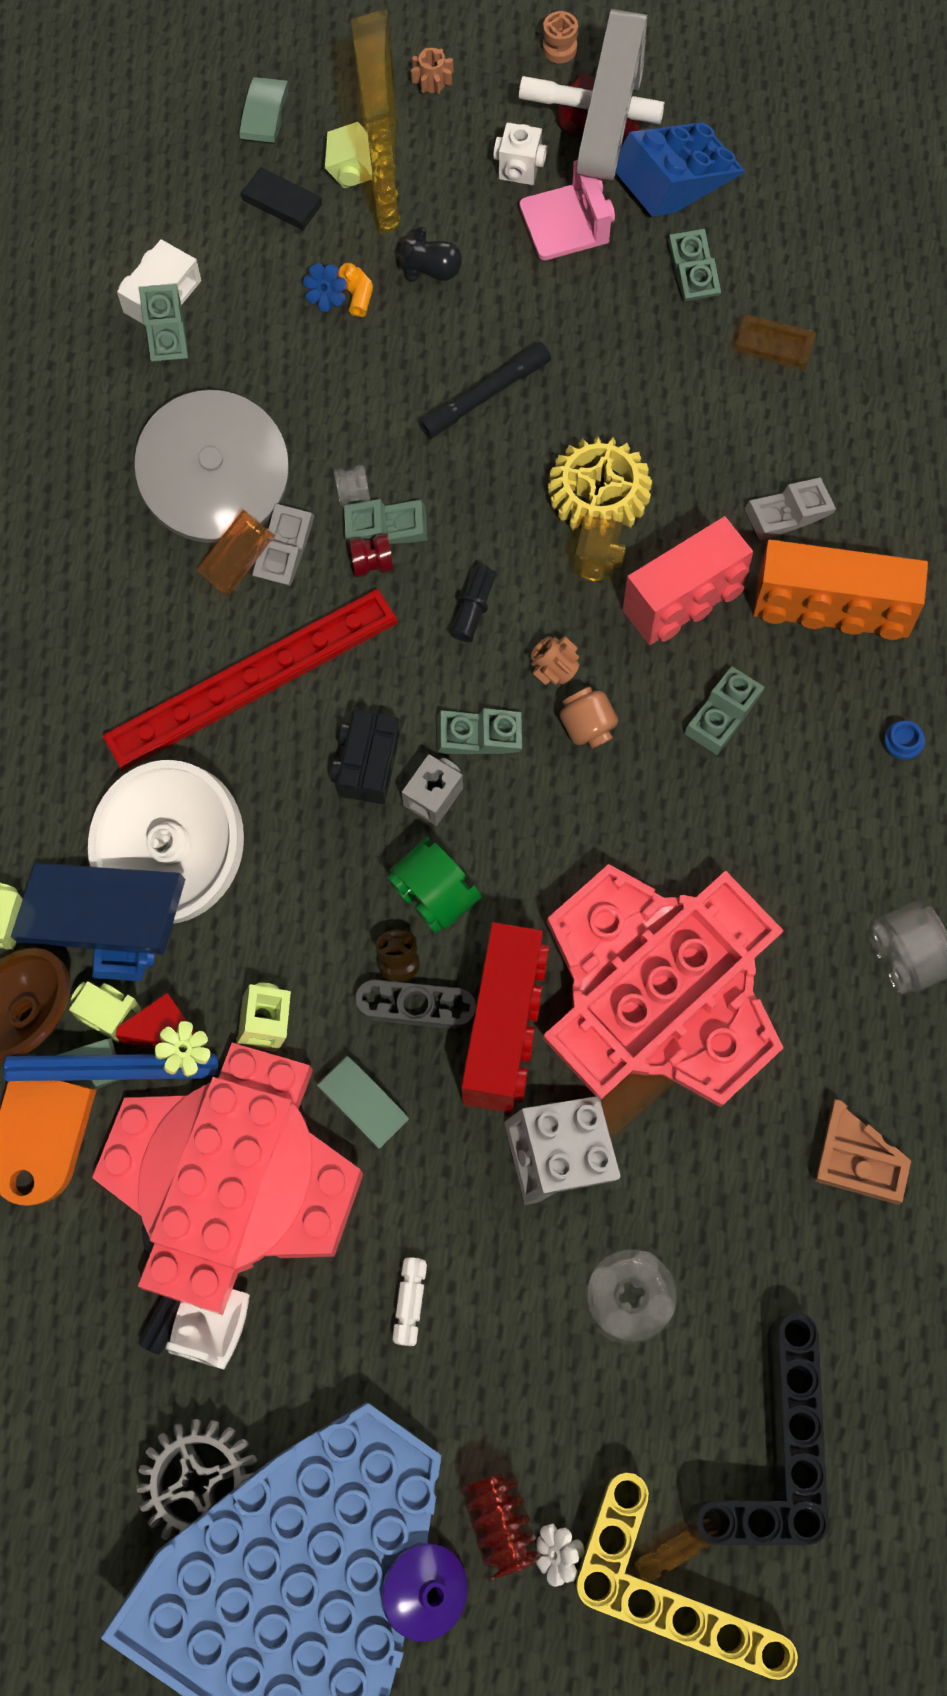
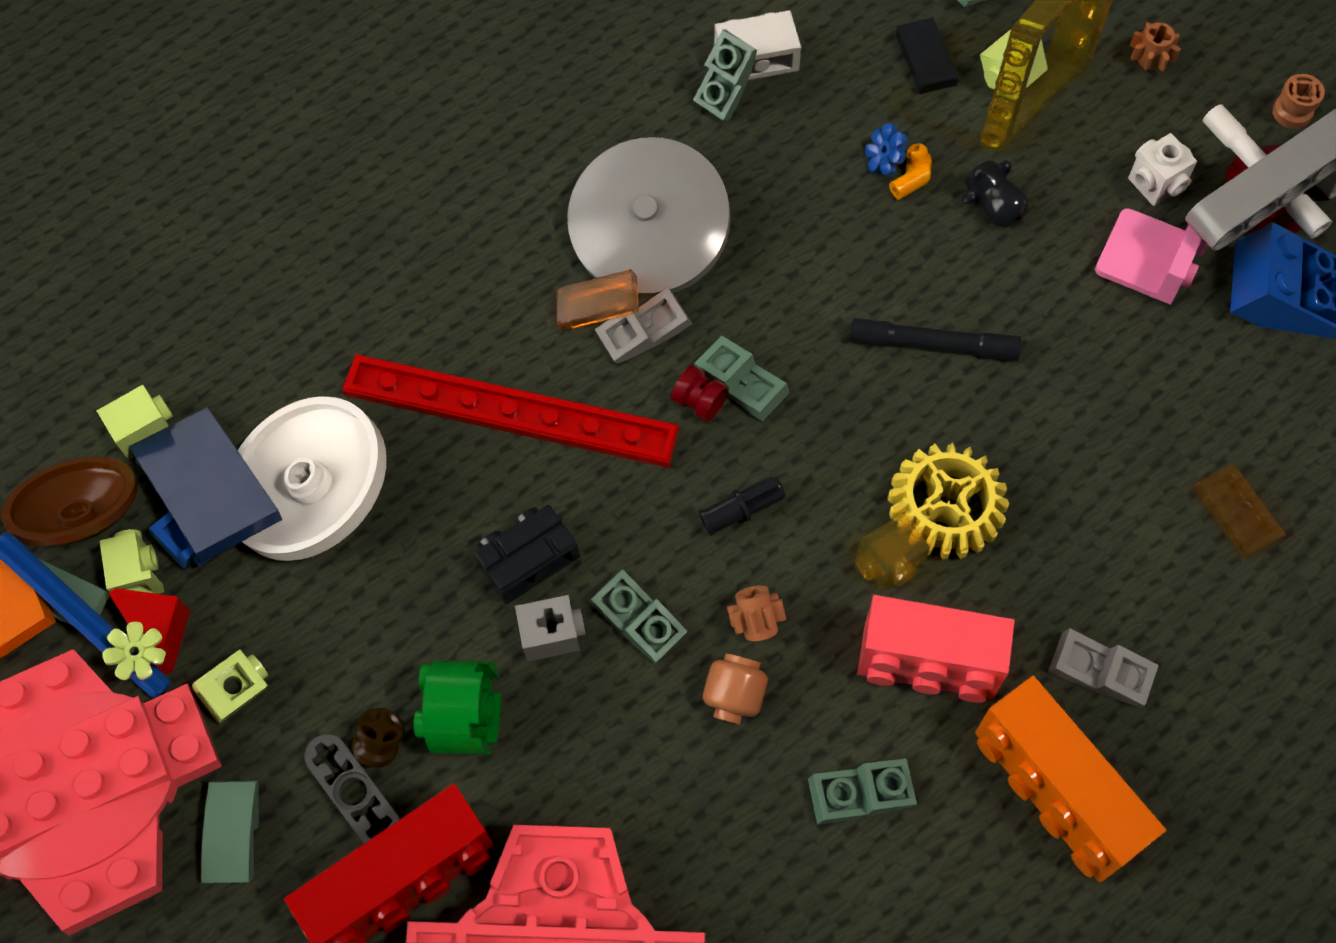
camera: 45 degrees right, 5 degrees down
(351, 485) = (742, 324): clear wheel -> none
(693, 265) = (1229, 384): sand green slope -> none

